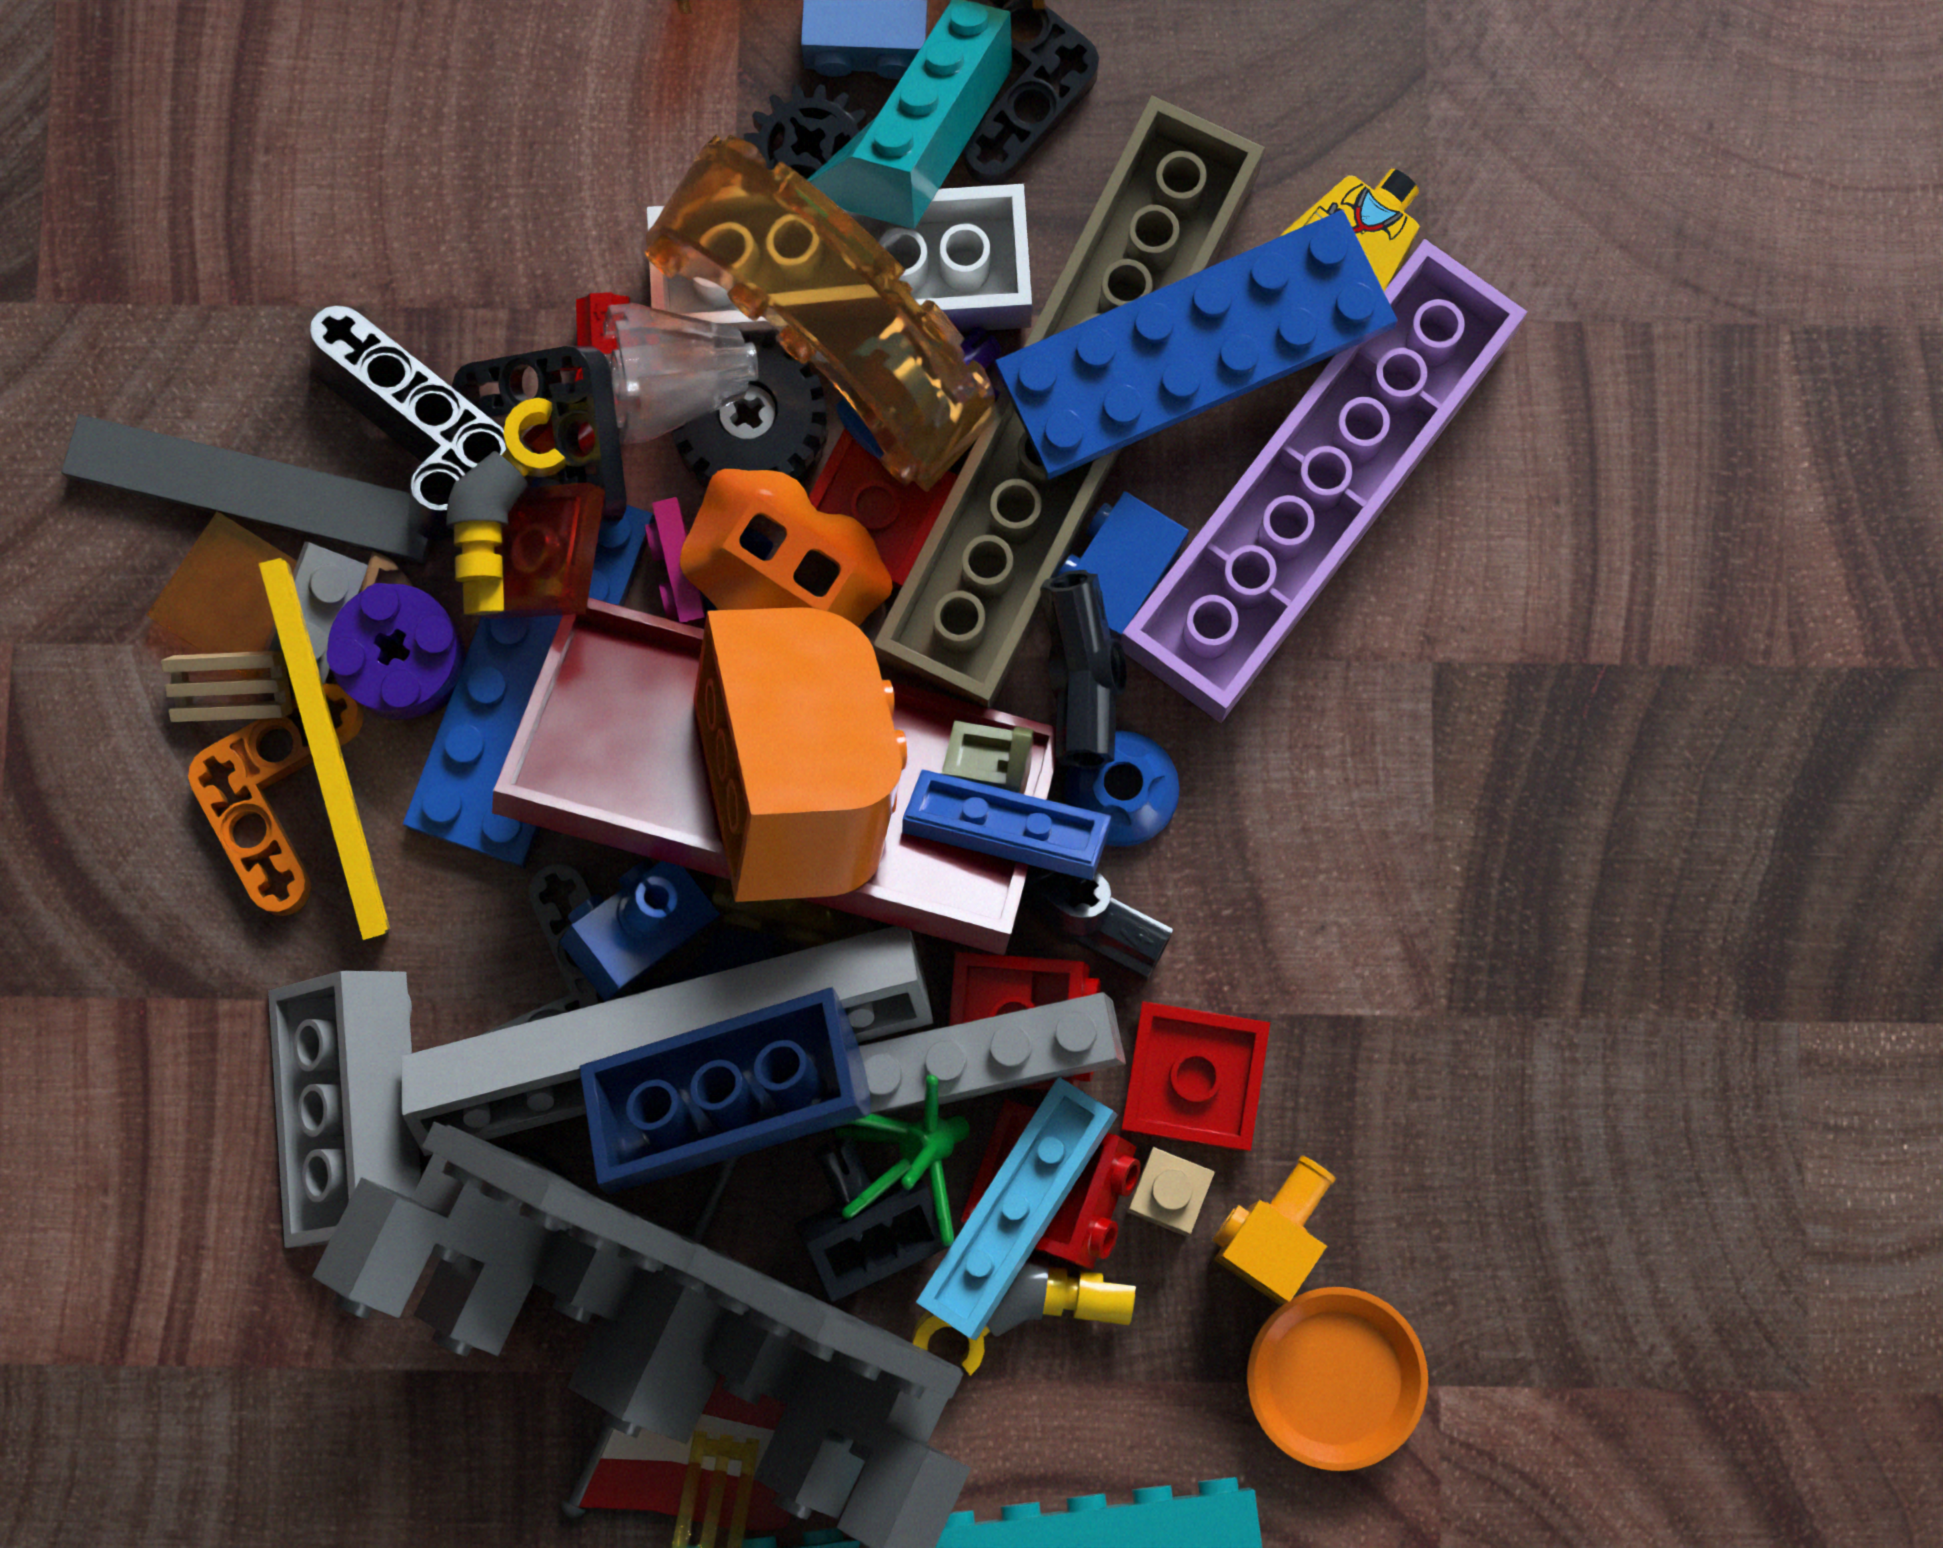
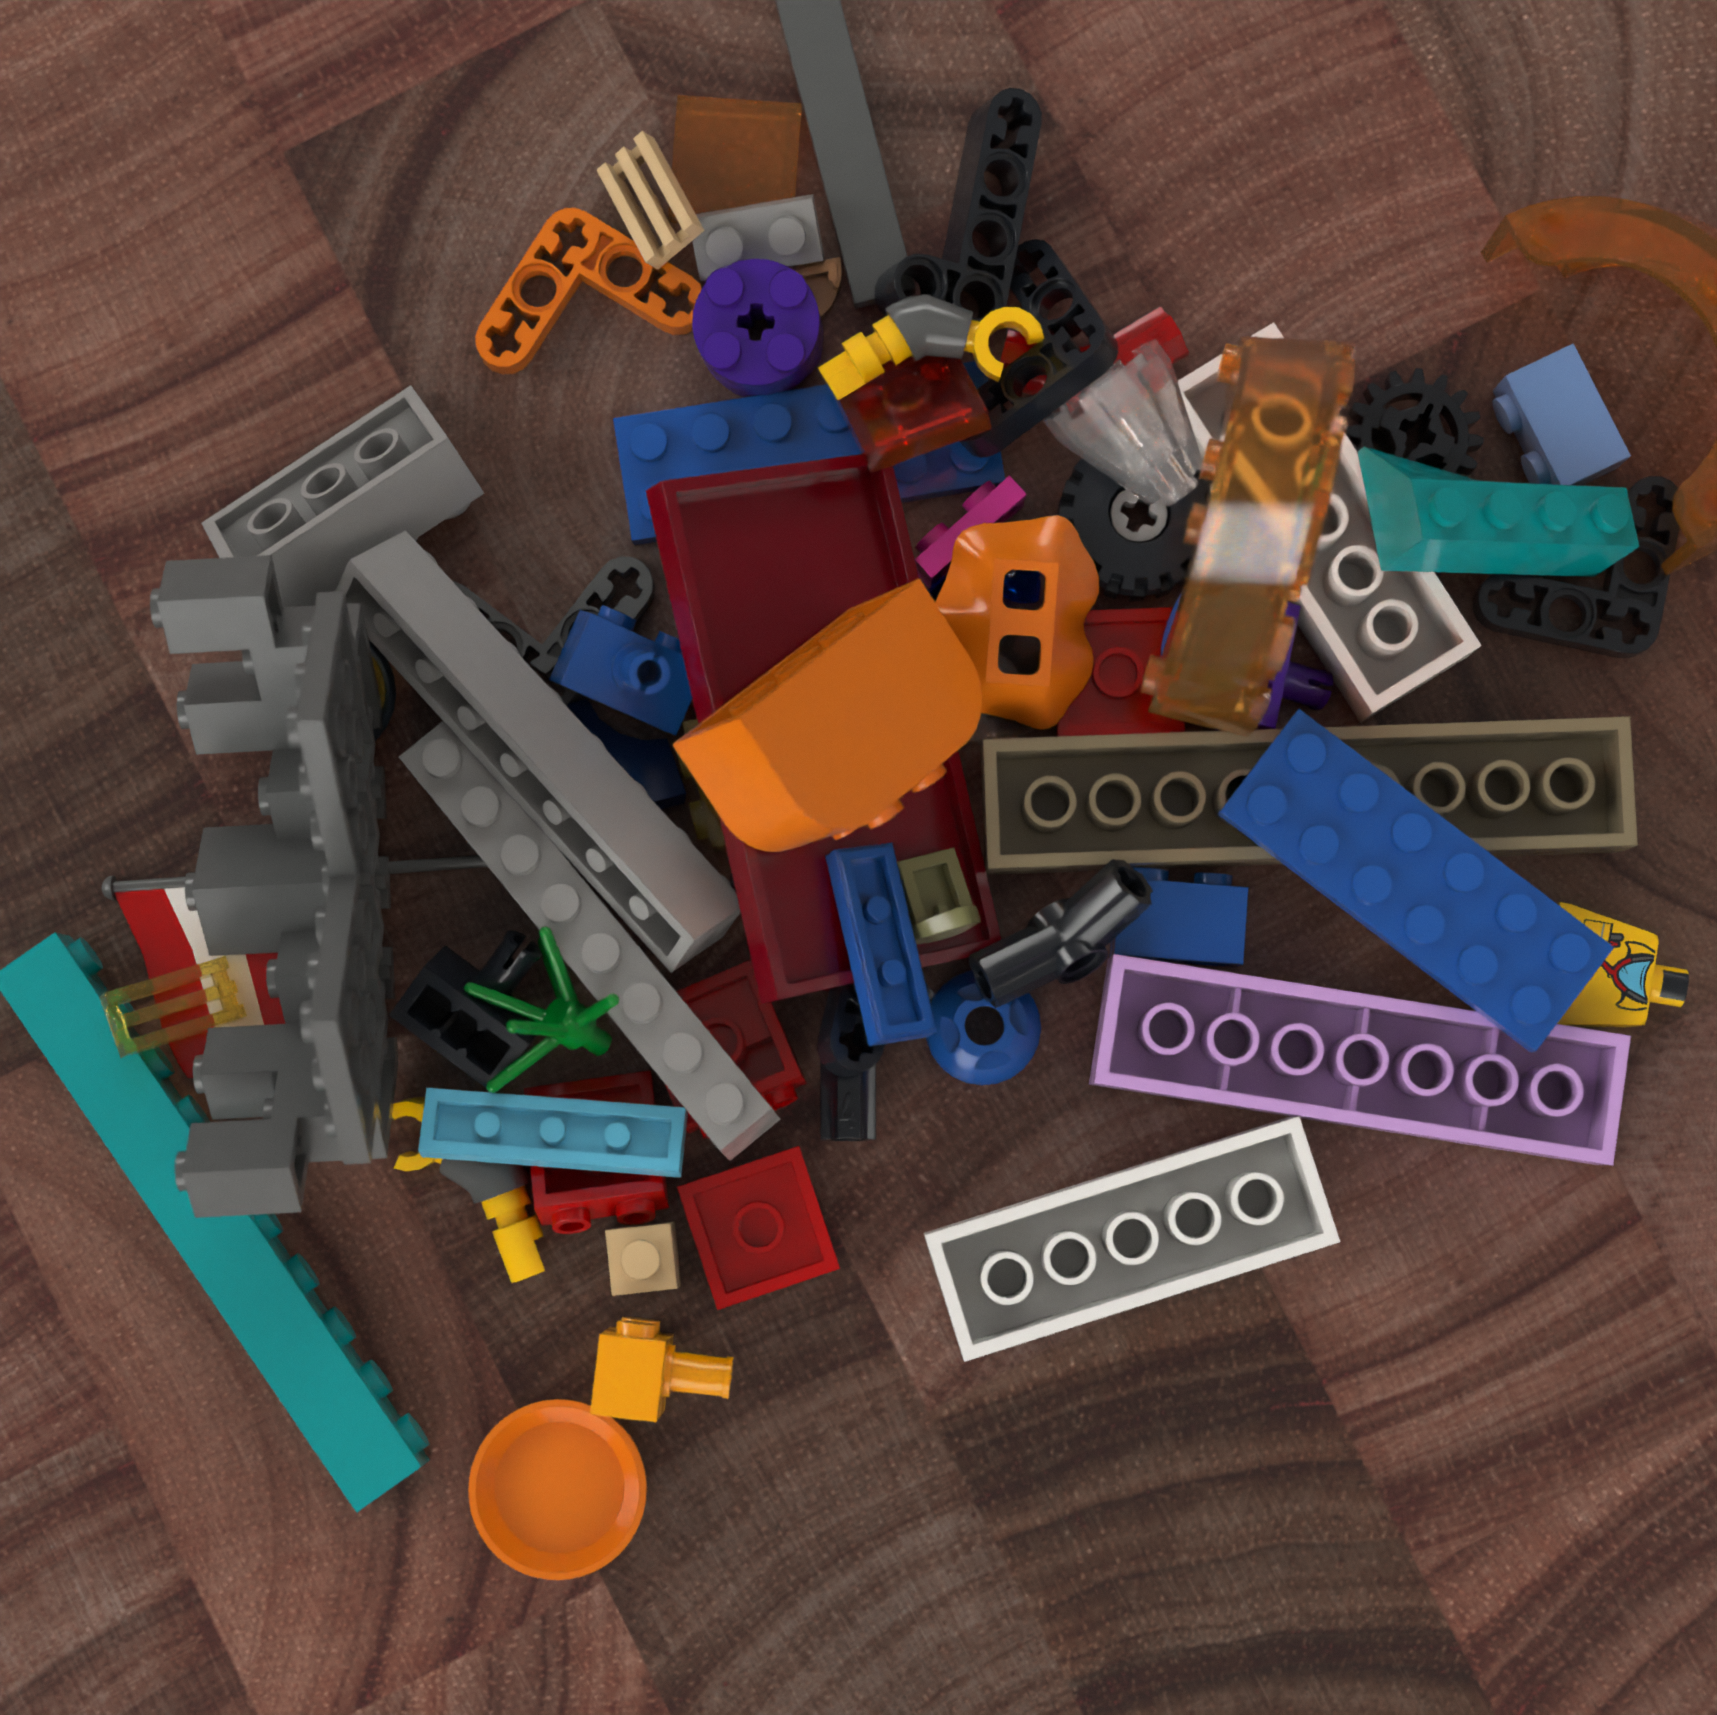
camera: 60 degrees right, 5 degrees up
(325, 748) = (637, 314): yellow tile -> none
(724, 1091) = (509, 825): dark blue brick -> none
(1375, 755) = (1131, 1237): none -> white brick

